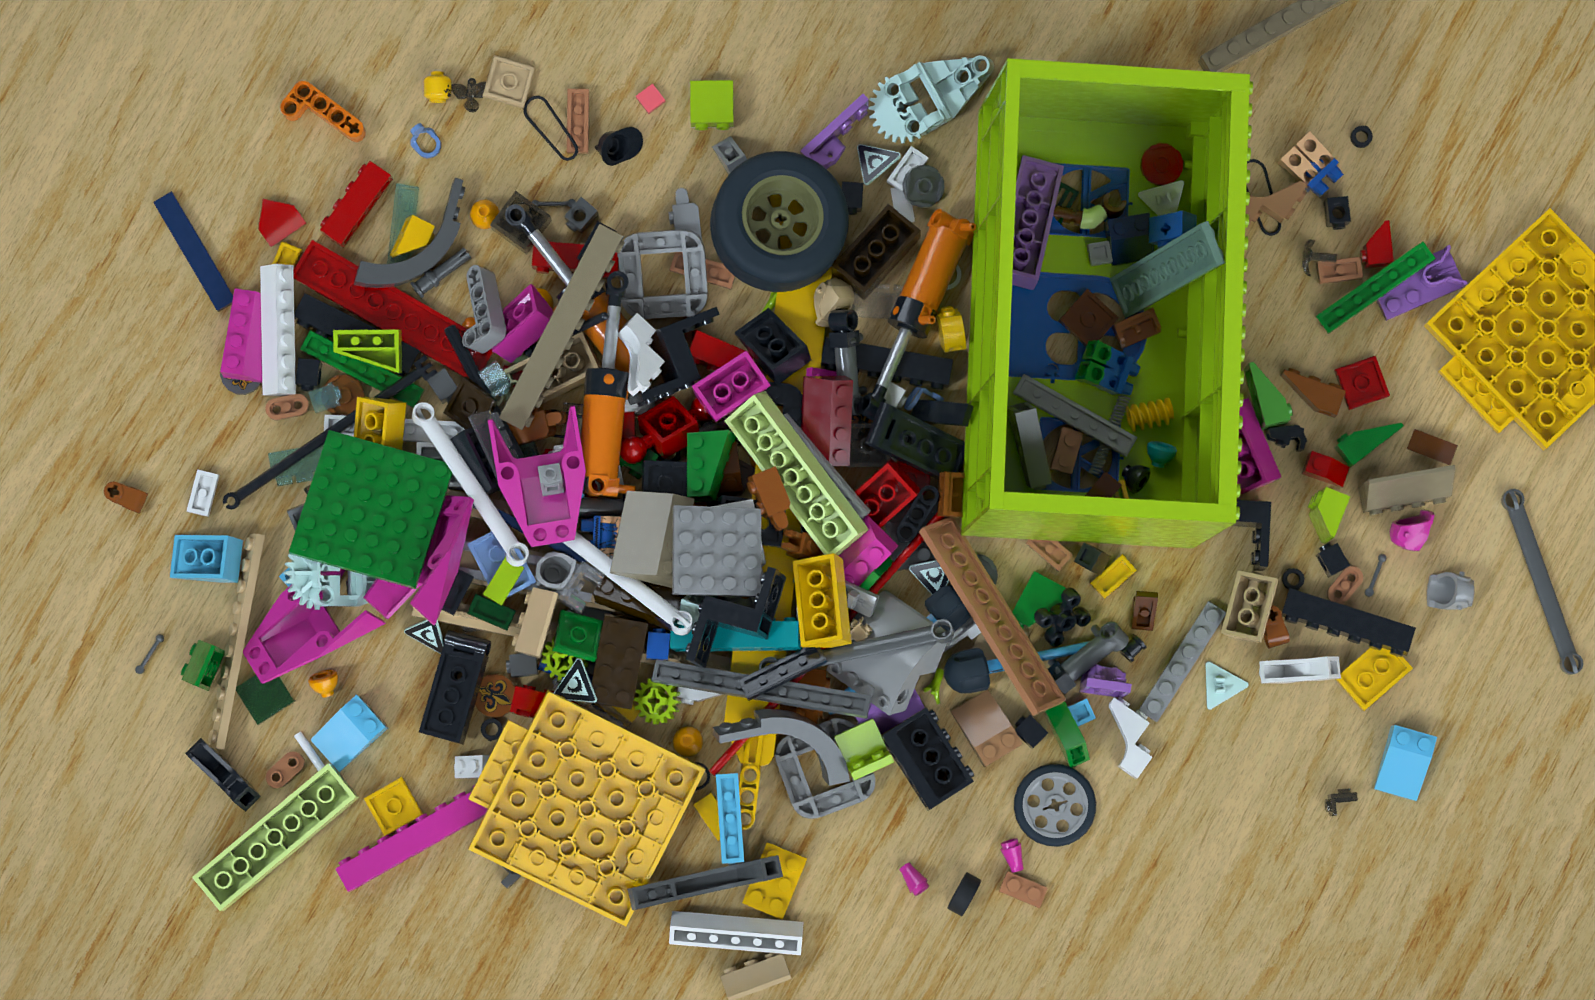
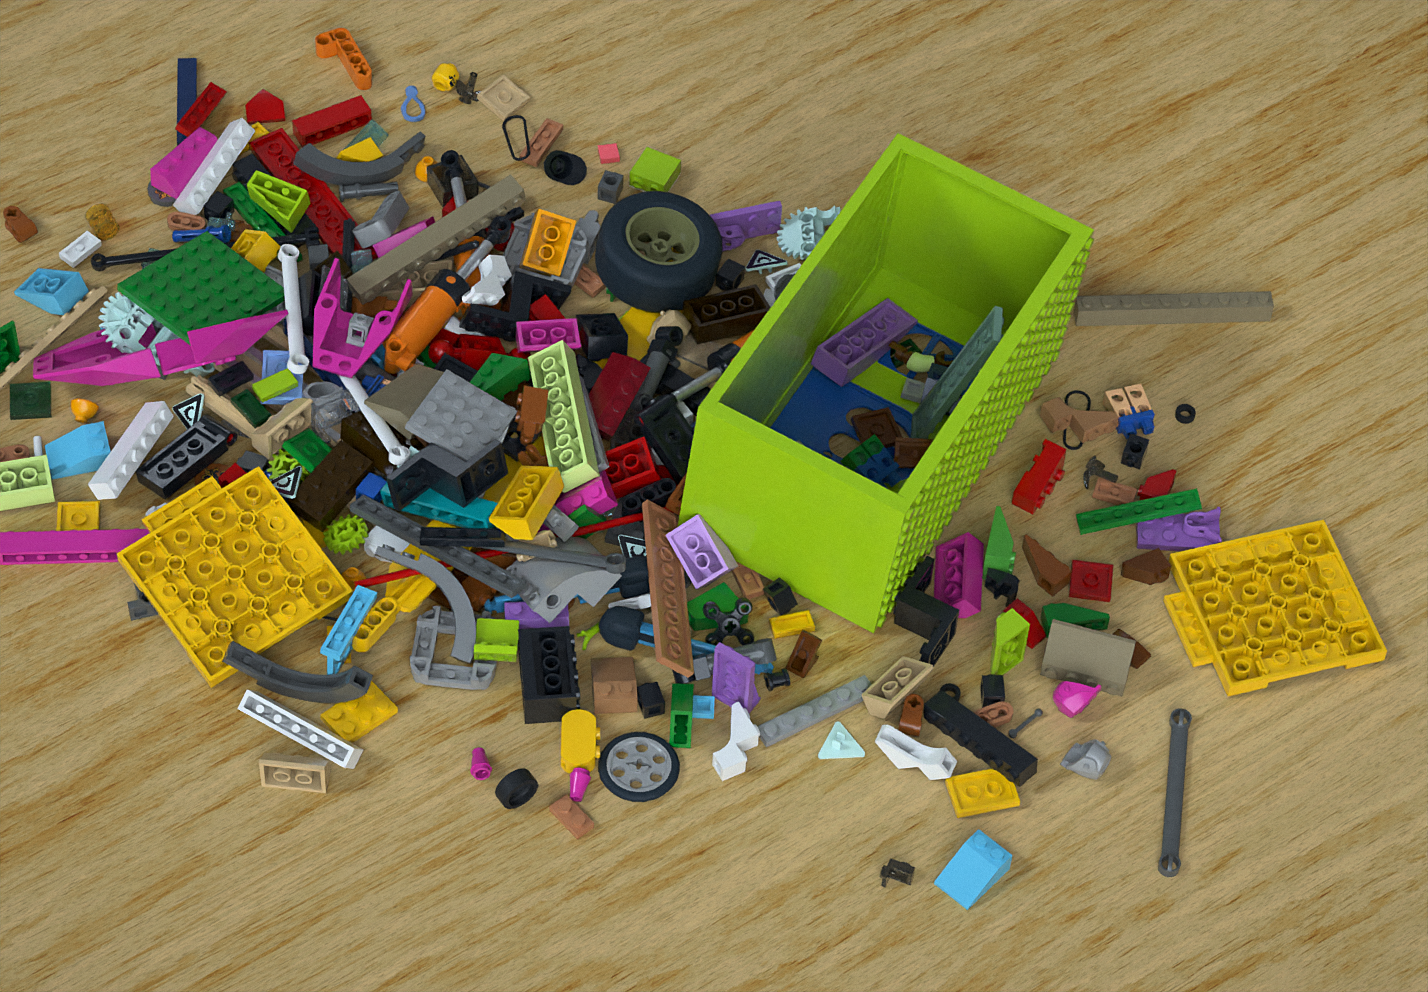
camera: 25 degrees right, 30 degrees down
(203, 450) = (102, 221): none -> clear yellow wheel
(219, 261) = (201, 109): none -> red plate
(323, 416) = (218, 232): none -> blue pin
(401, 711) = (130, 450): none -> white brick
(664, 266) = (547, 243): none -> light orange slope
(681, 152) = (610, 187): none -> dark grey brick
(990, 810) = (579, 740): none -> yellow brick
(1003, 558) = (701, 552): none -> lavender slope
(1265, 294) = (1040, 478): none -> red wedge
(1411, 344) = (1147, 568): none -> reddish brown slope

